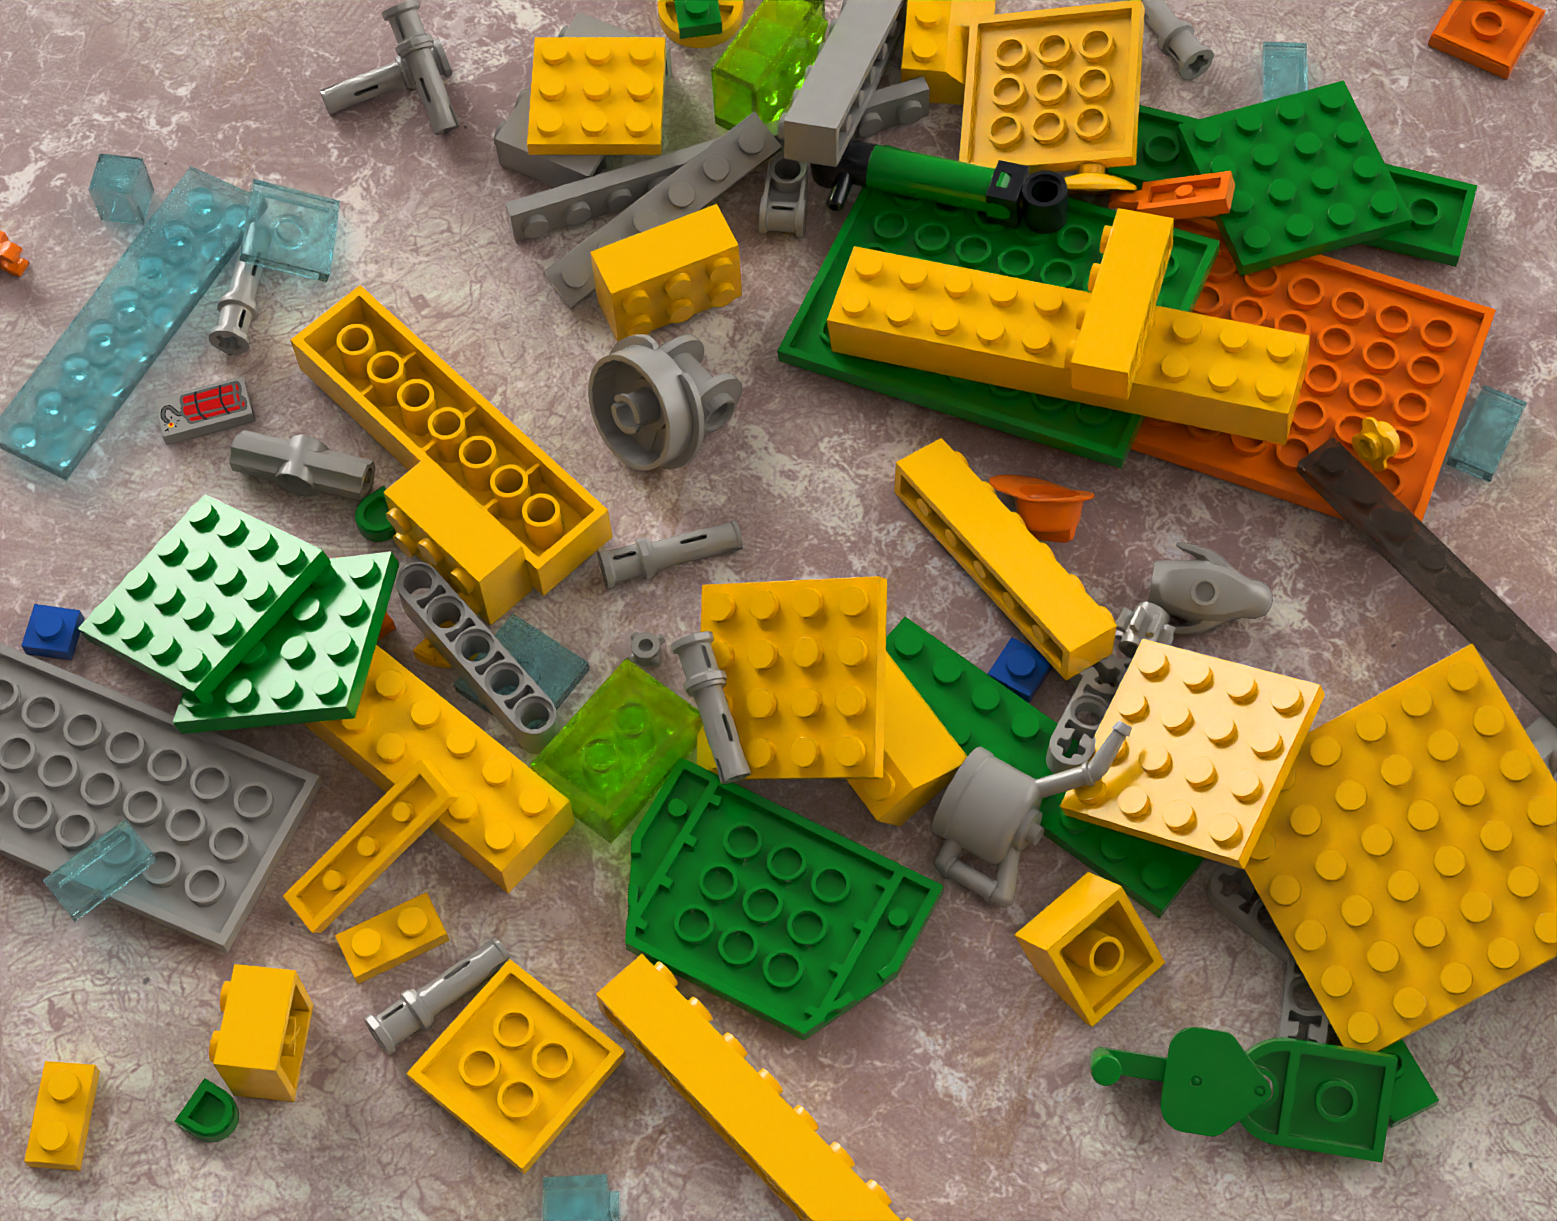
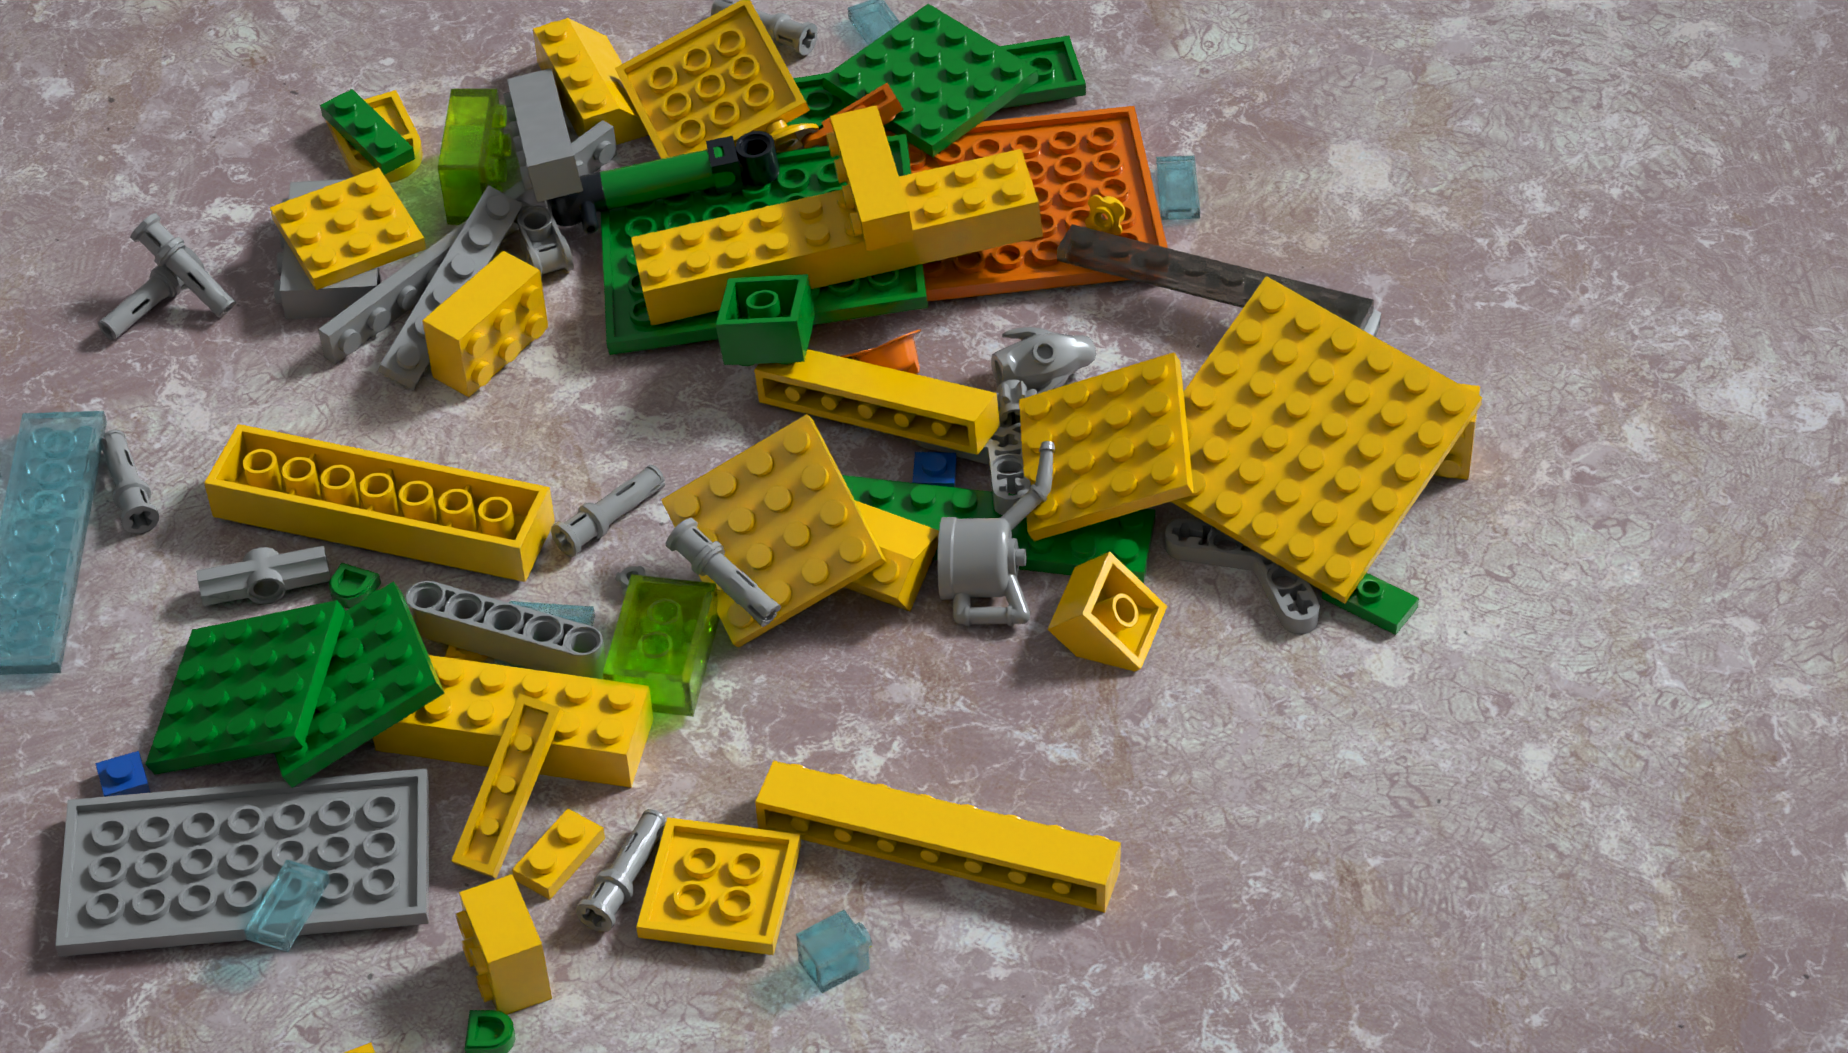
camera: 30 degrees left, 15 degrees down
(204, 410) = (149, 576): tile -> none
(289, 230) = (141, 423): clear light blue tile -> none
(458, 540) = (429, 547): yellow brick -> none
(658, 401) = (536, 407): light grey piece -> none
(767, 903) = (843, 696): green plate -> none
(931, 414) = (765, 320): none -> green brick
(1318, 1102) = (1302, 637): green plate -> none

